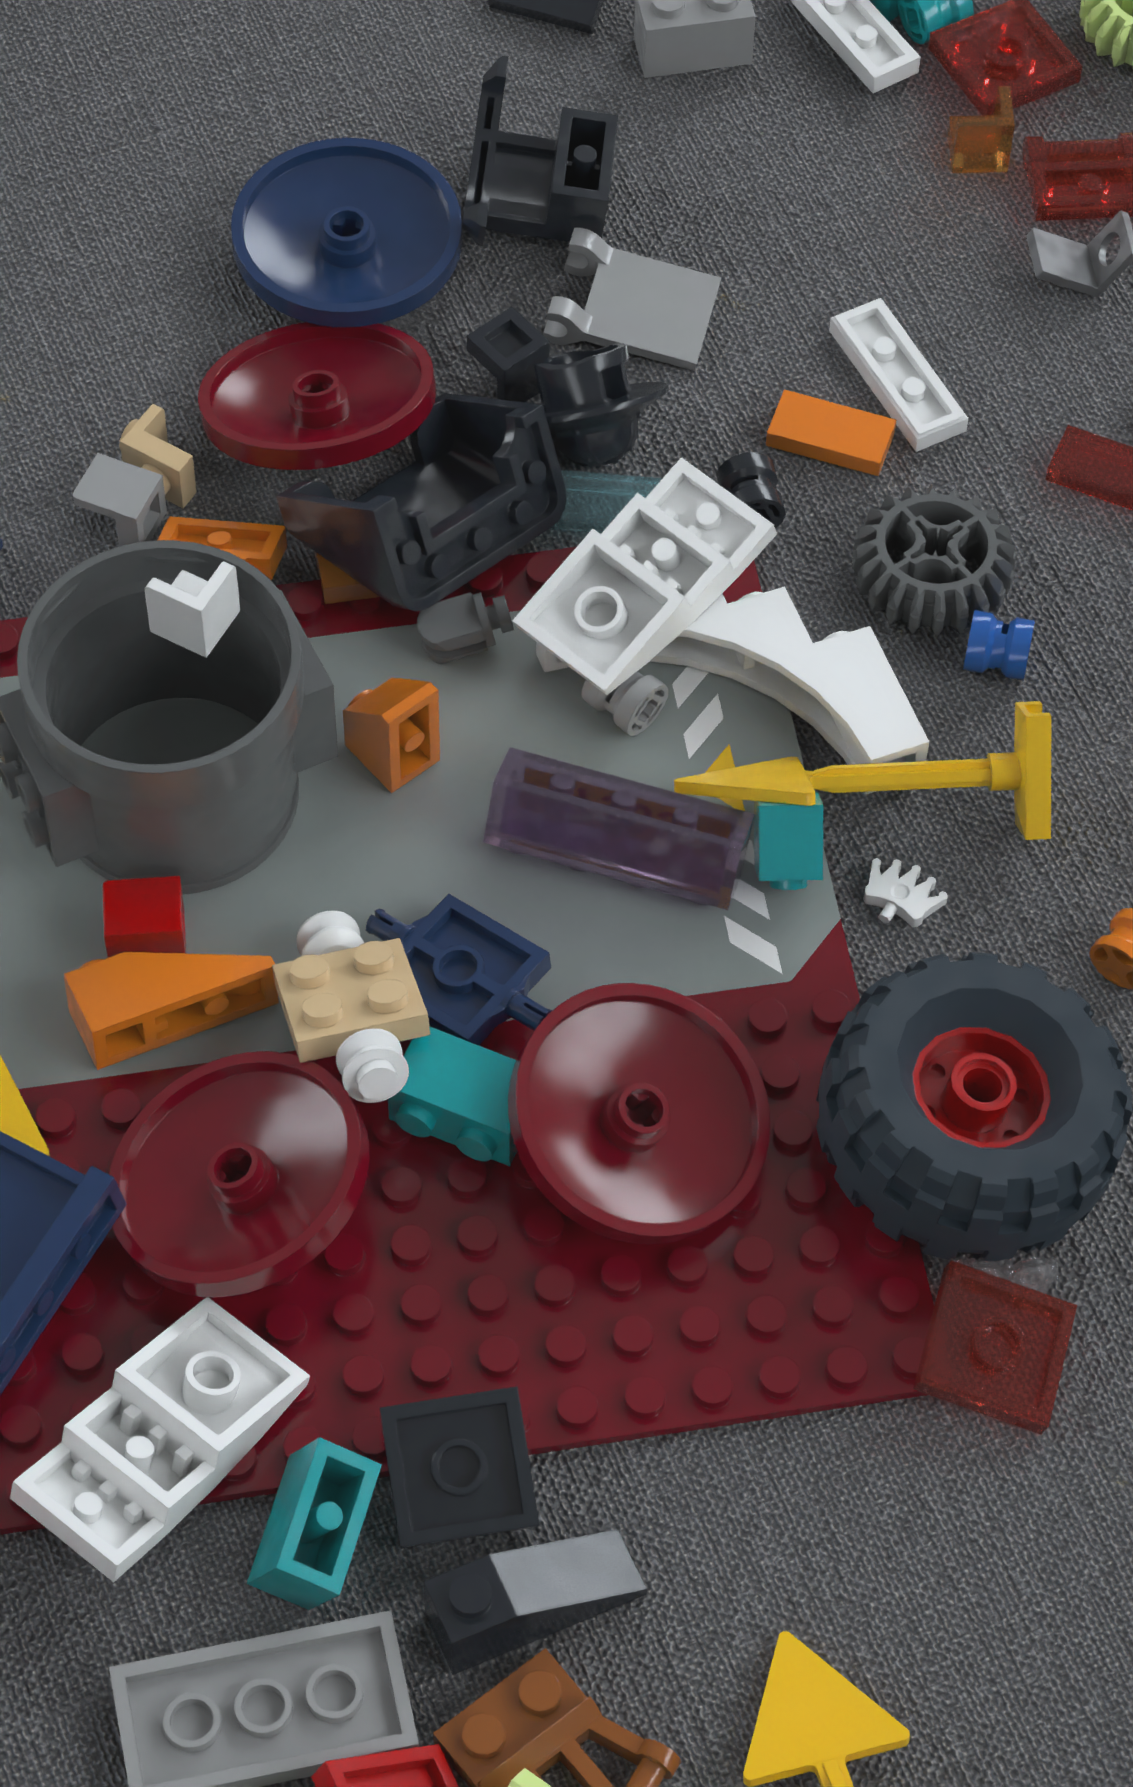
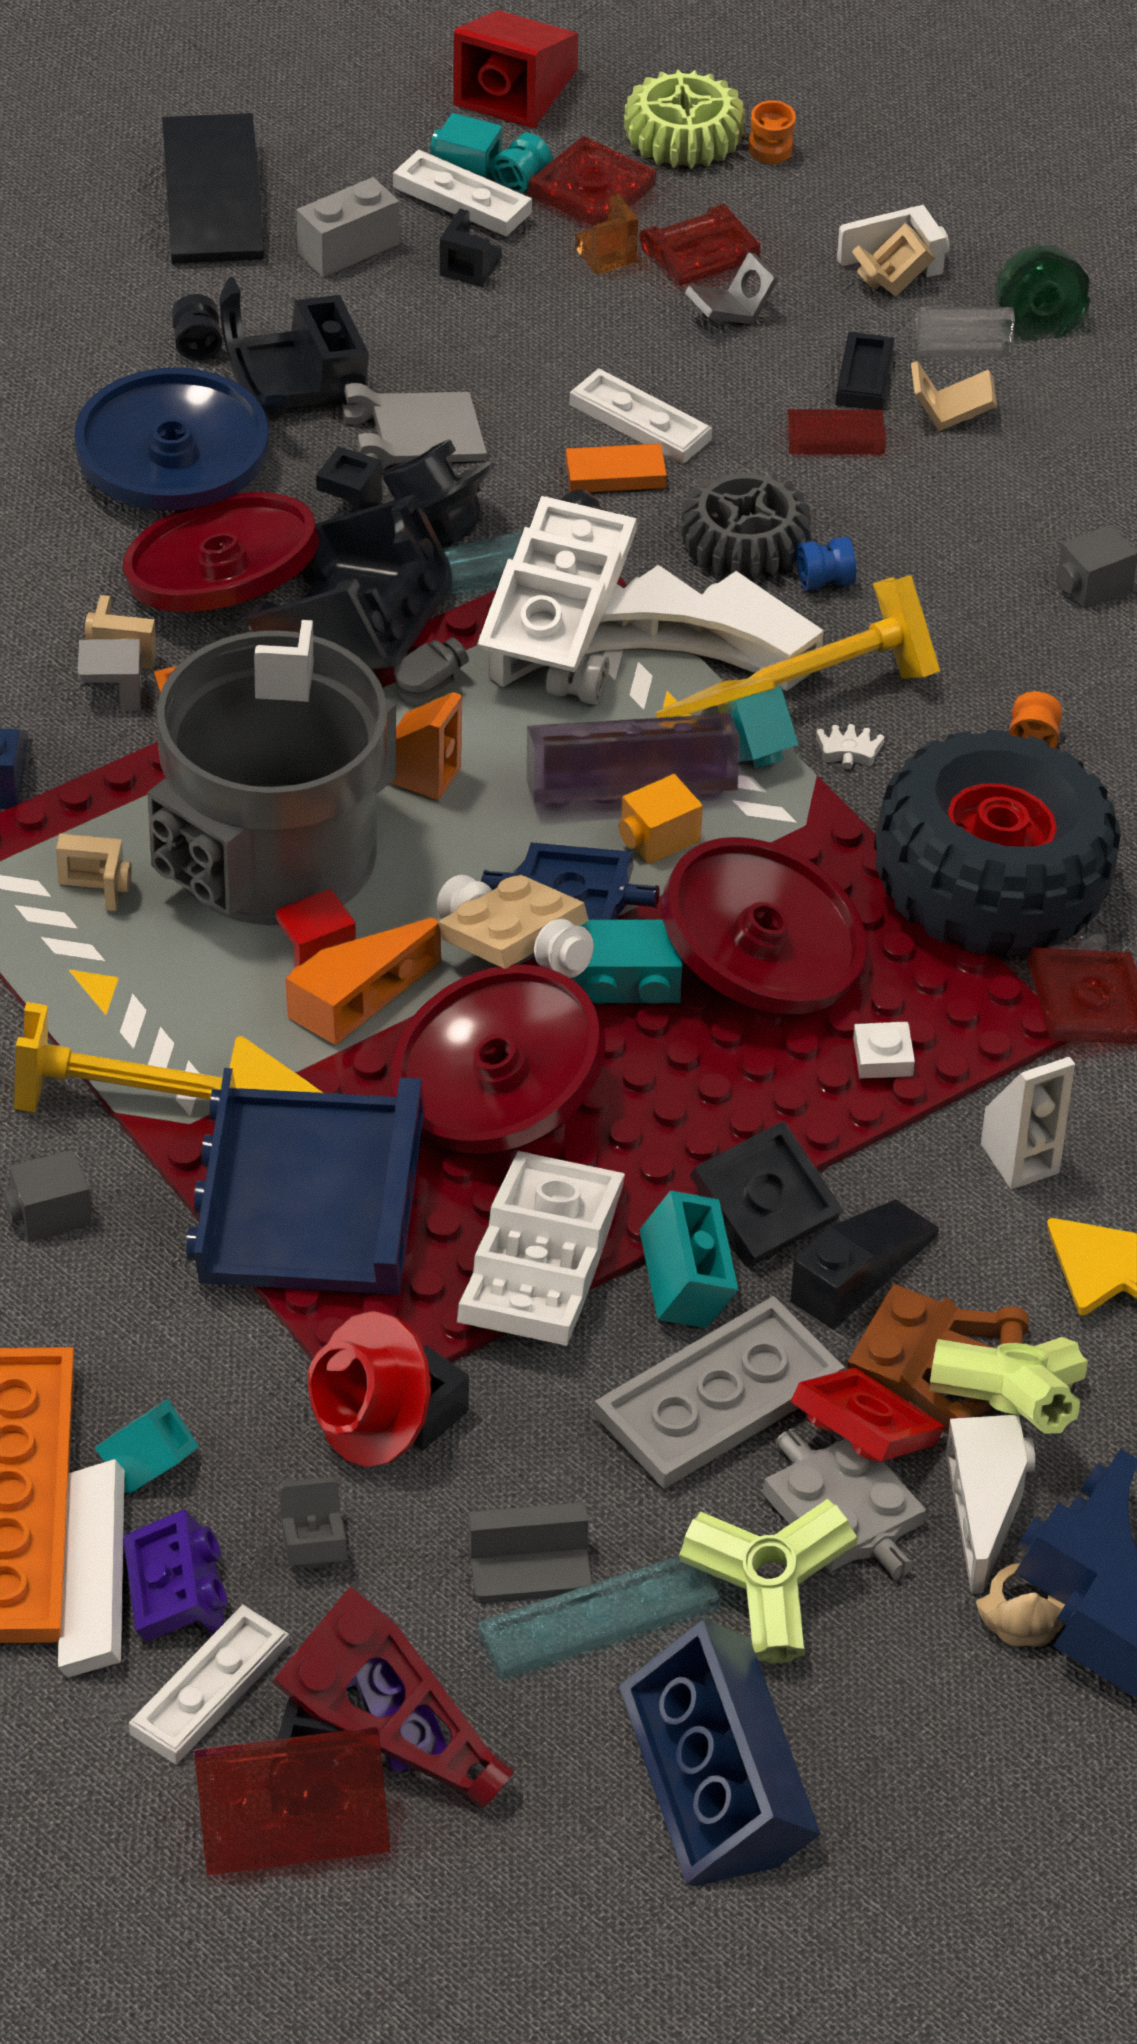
camera: 25 degrees left, 10 degrees down
(455, 103) = (196, 327): none -> black wheel
(613, 917) = (660, 819): none -> light orange brick
(703, 1326) = (883, 1050): none -> white plate
(804, 1512) = (1028, 1123): none -> white slope
(811, 101) = (466, 255): none -> black panel

